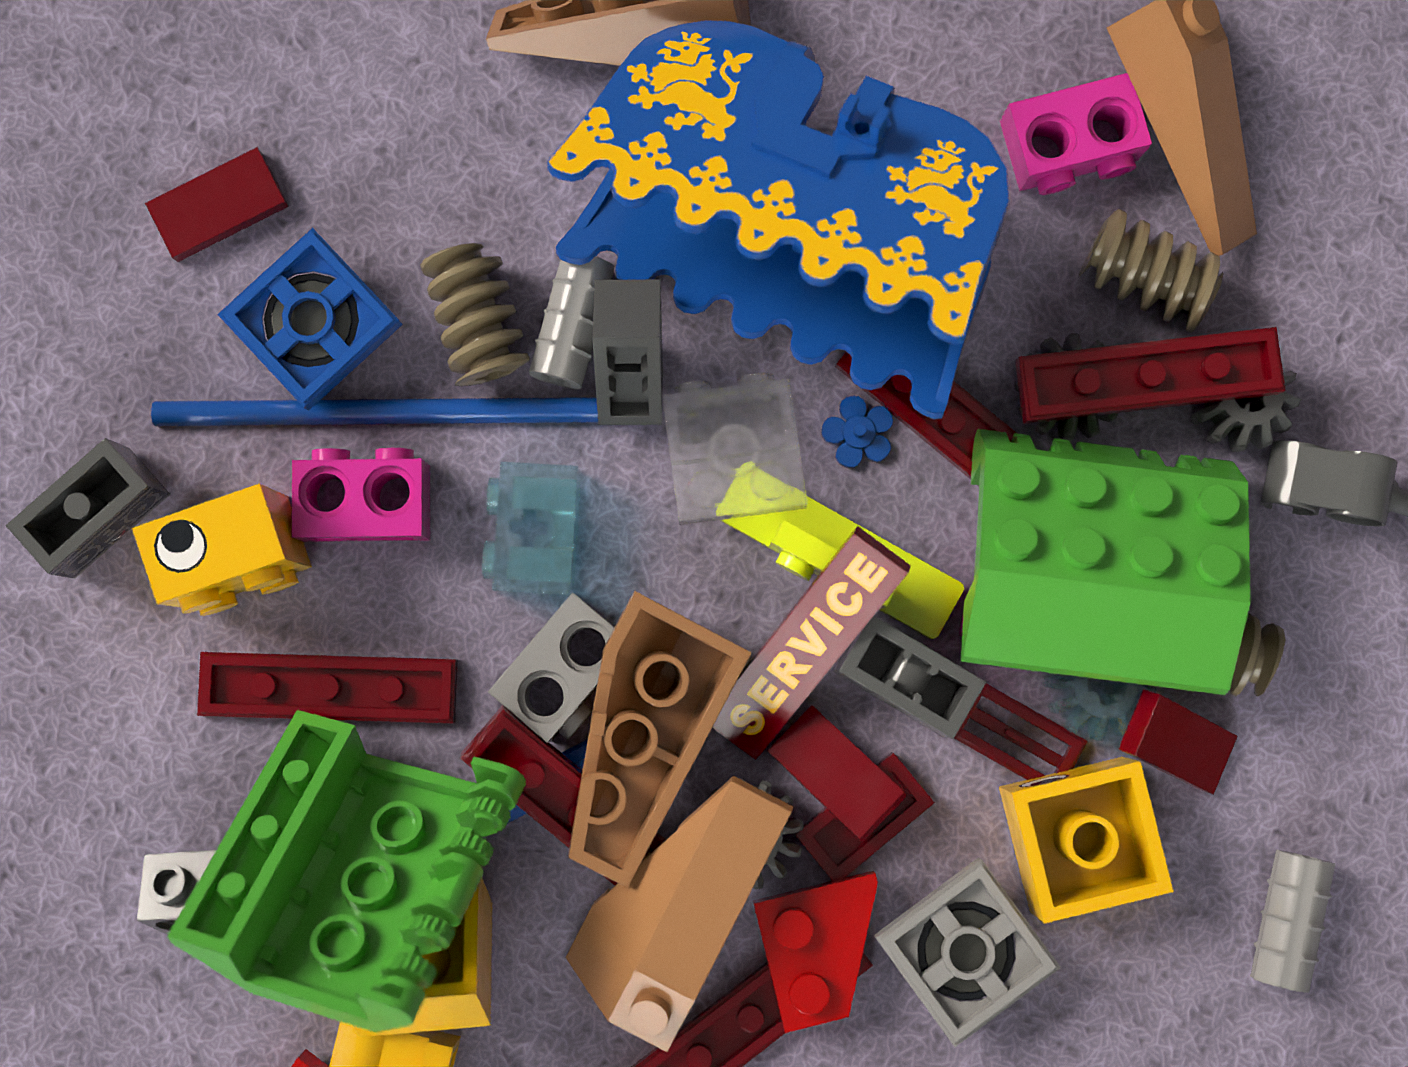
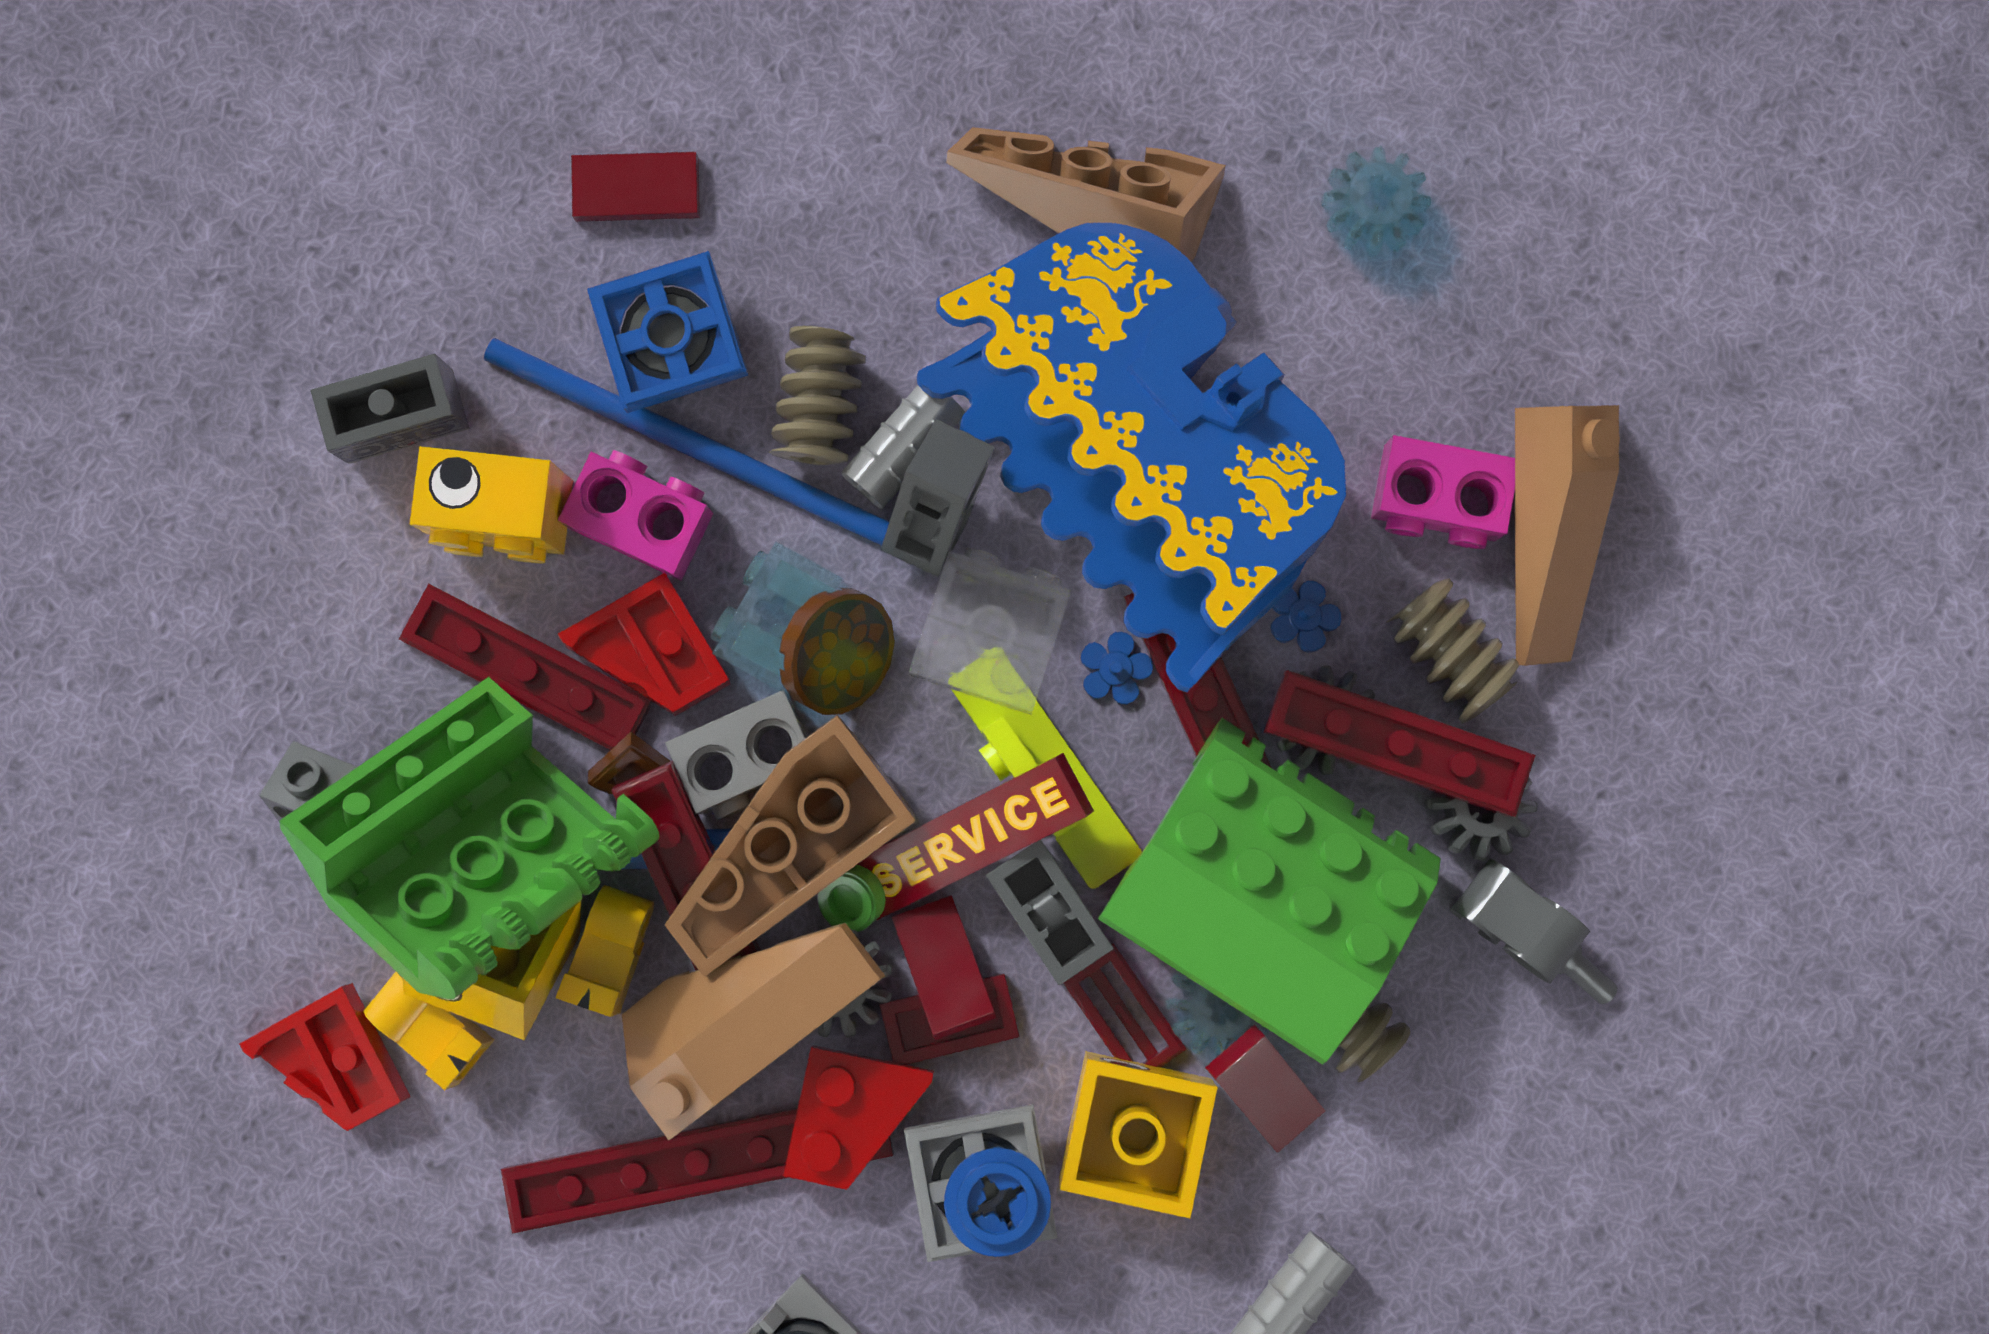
camera: 30 degrees right, 0 degrees up
(431, 612) = (650, 647): none -> red wing
(458, 728) = (624, 762): none -> reddish brown tile
(526, 908) = (607, 952): none -> yellow leg
(603, 534) = (836, 651): none -> reddish brown tile
(726, 752) = (853, 899): none -> bright green tile
(998, 993) = (987, 1232): none -> blue gear
(1006, 307) = (1305, 617): none -> blue plant

